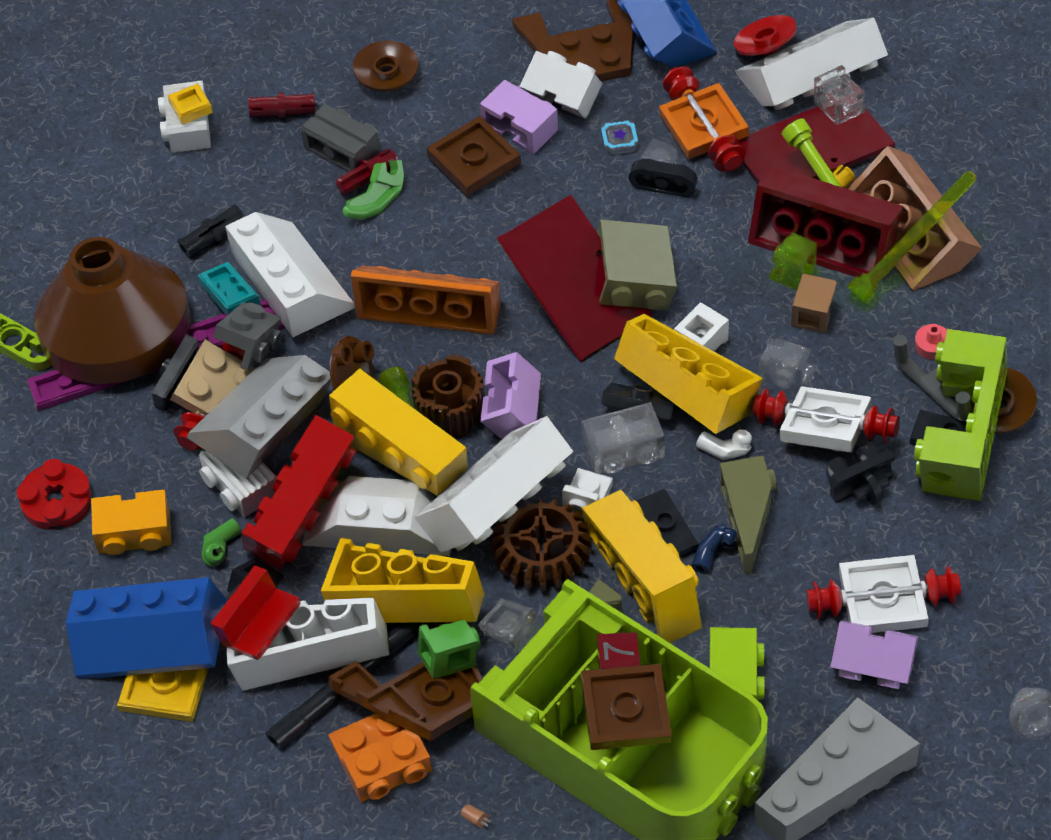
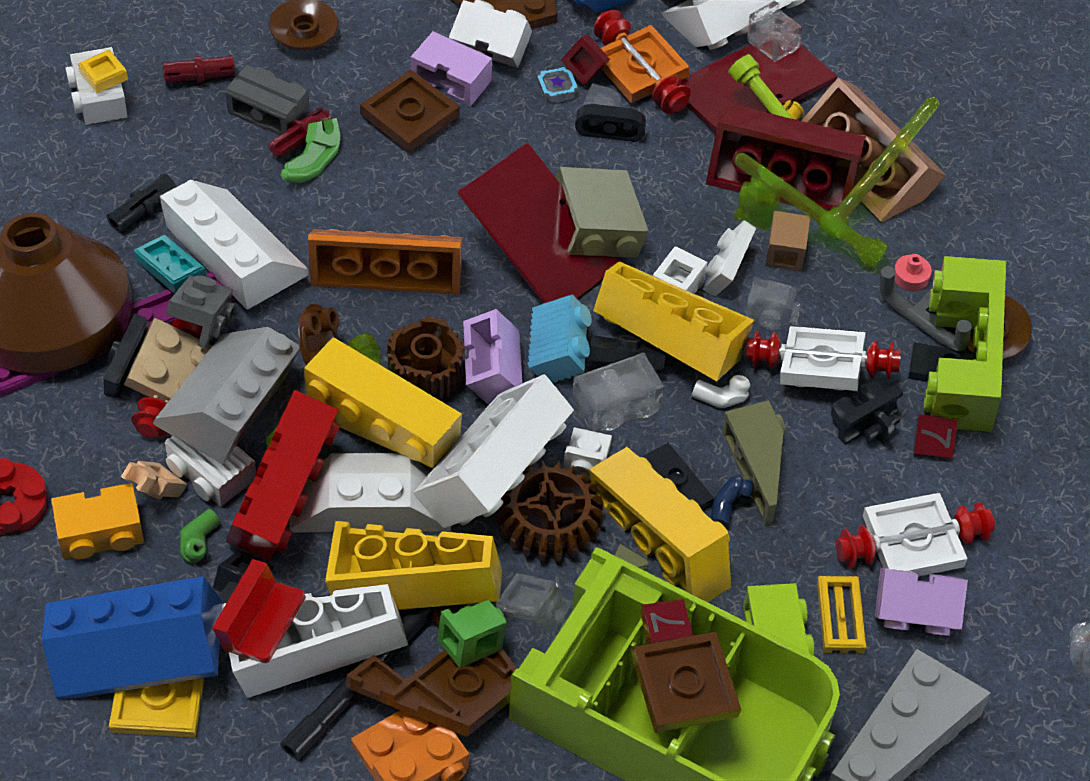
camera: 15 degrees left, 0 degrees up
(185, 488) = (154, 479): none -> light nougat plate
(576, 384) = (559, 338): none -> medium azure brick
(648, 114) = (585, 59): none -> dark red plate
(746, 325) = (725, 264): none -> white plate
(798, 688) = (842, 643): none -> yellow tile
(891, 315) = (867, 248): none -> clear neon green piece
(921, 500) = (935, 436): none -> dark red tile

